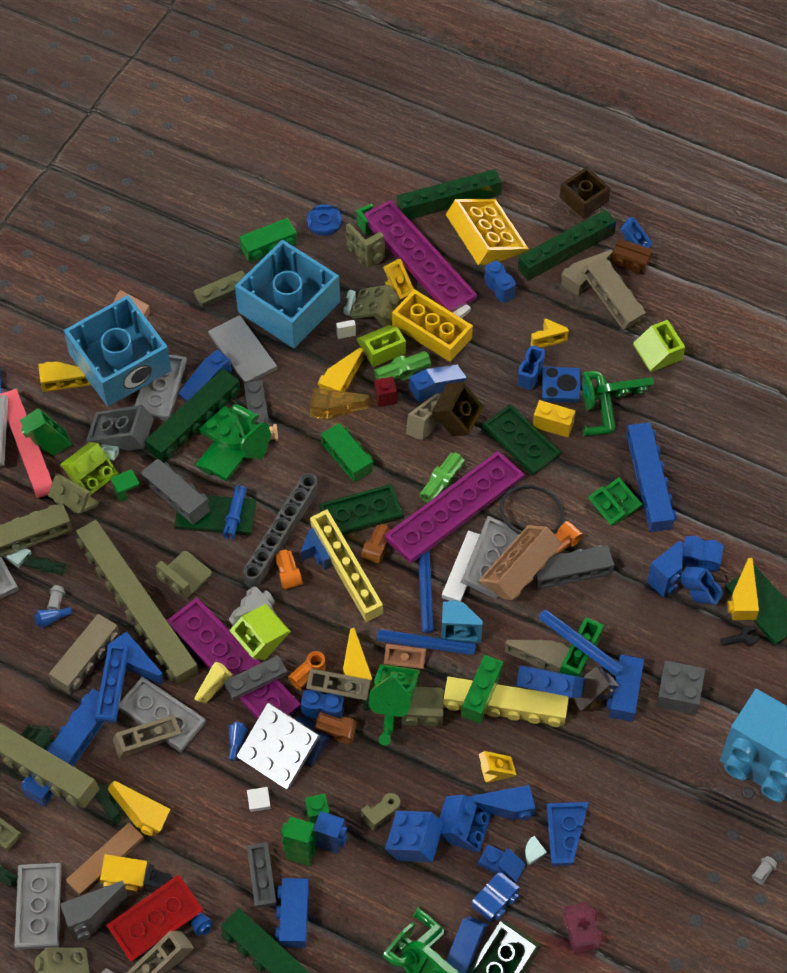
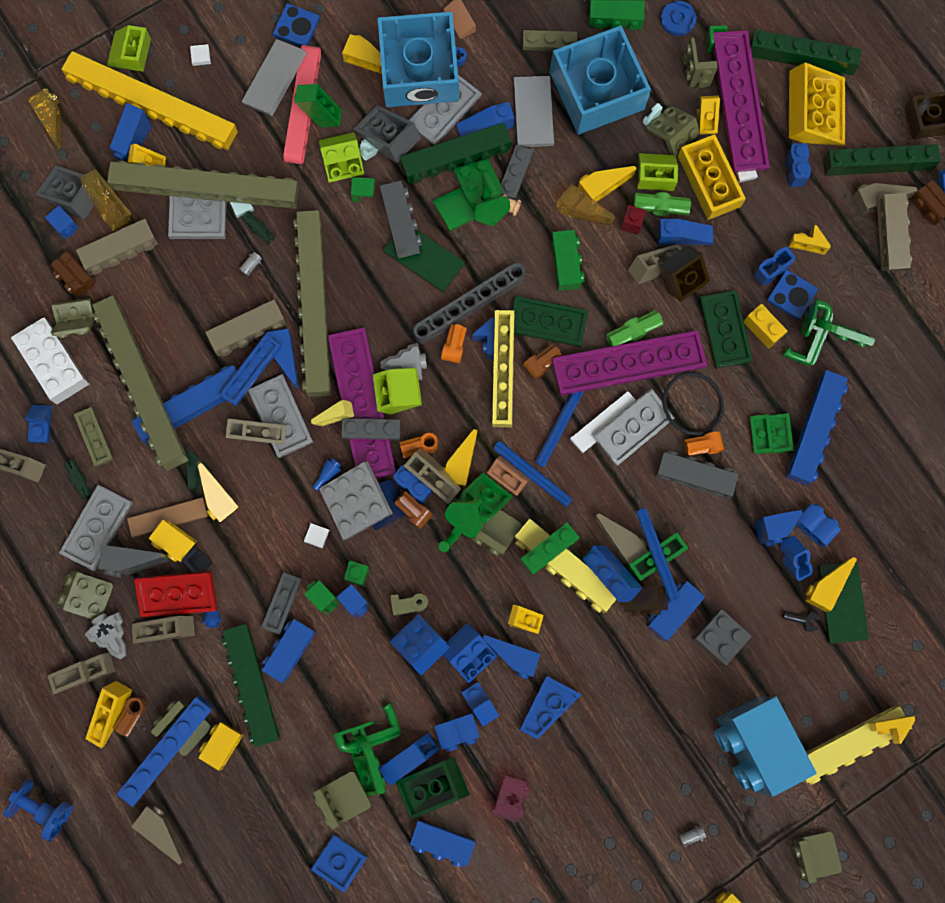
camera: 25 degrees right, 20 degrees up
(38, 735) = (168, 382): clear green slope -> none
(46, 617) = (235, 277): blue cone -> none
(71, 495) = (310, 178): olive bracket -> none
(183, 574) = (366, 299): olive bracket -> none
(233, 517) = (433, 271): blue pin -> none
(346, 329) = (634, 139): white tile -> none
(460, 623) = (567, 475): dark azure slope -> none
(521, 562) = (652, 449): medium nougat slope -> none
(534, 851) = (512, 708): light aqua tile -> none
(659, 346) = (903, 307): lime slope -> none

